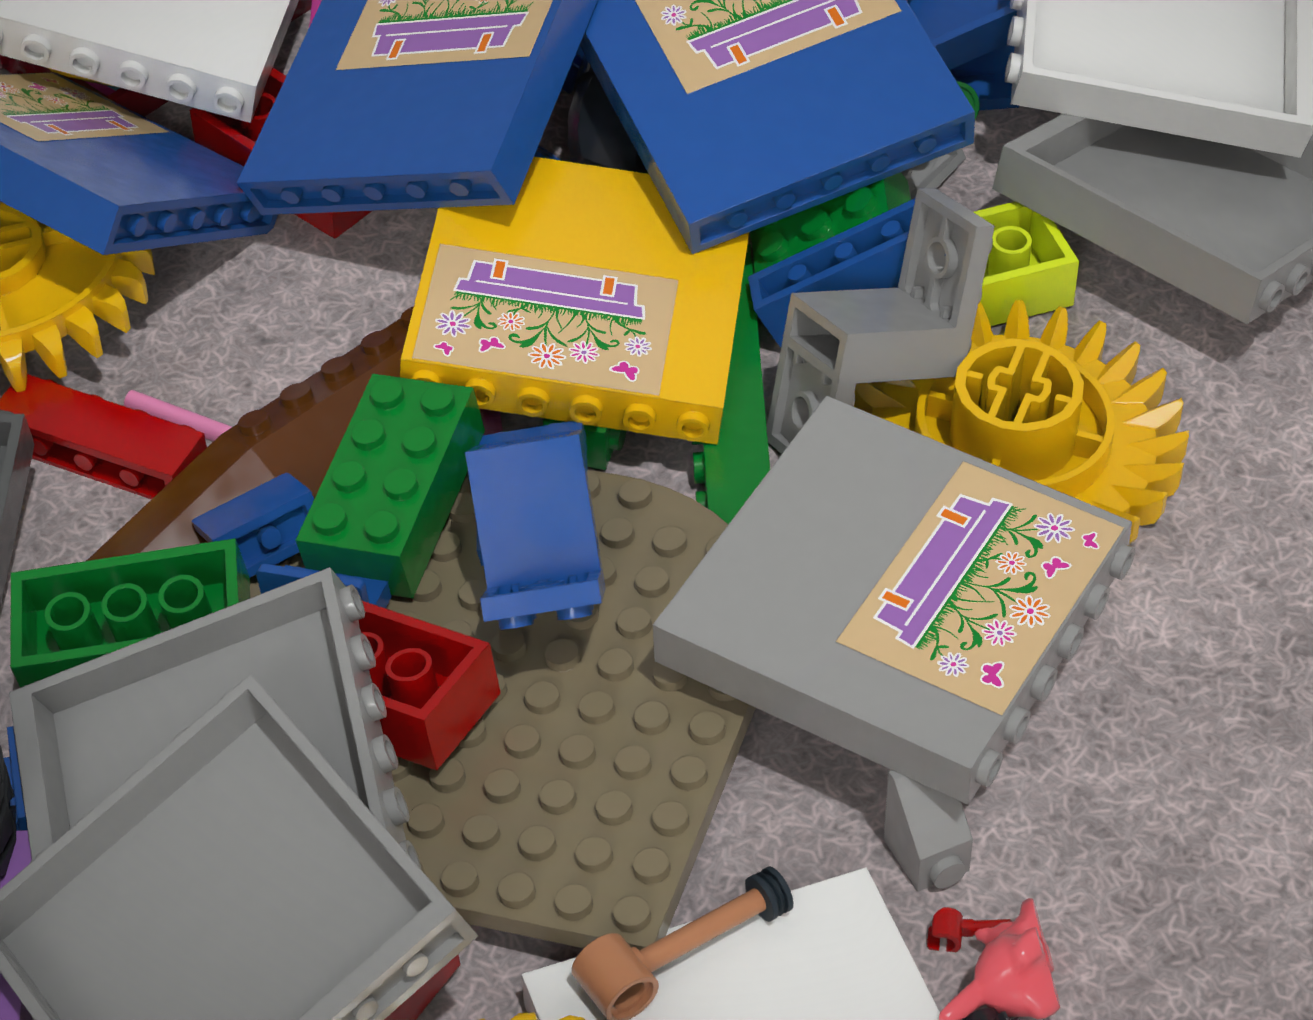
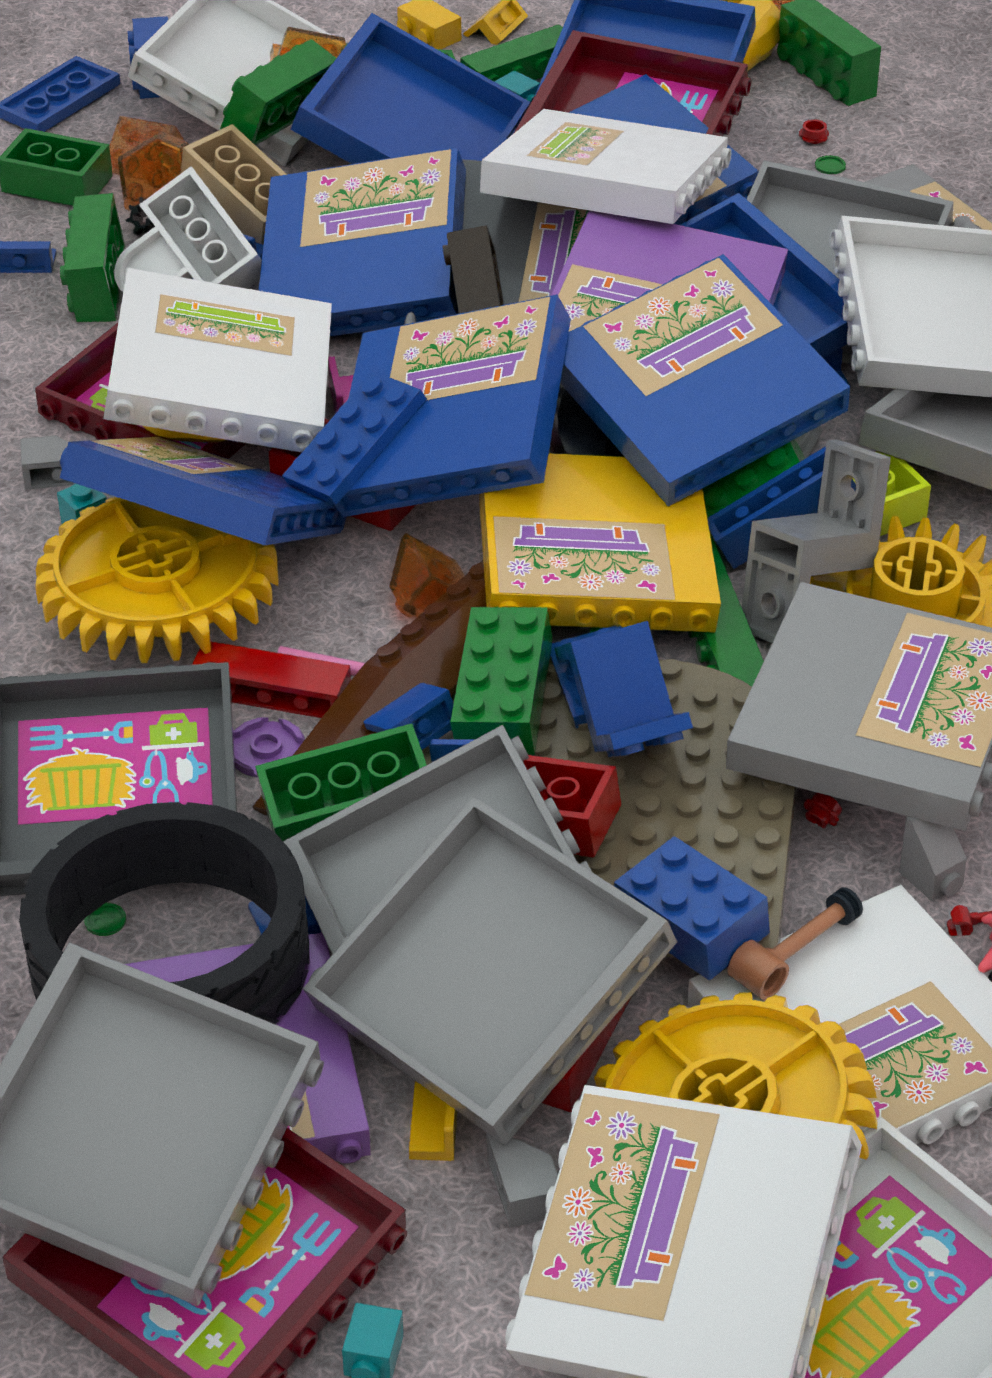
camera: 10 degrees left, 5 degrees down
(69, 543) = (253, 732): none -> medium lavender tile
(287, 107) = (354, 437): none -> blue plate
(346, 307) = (421, 575): none -> clear orange slope
(539, 871) = (701, 901): none -> blue brick
(795, 738) = (822, 810): none -> red plate

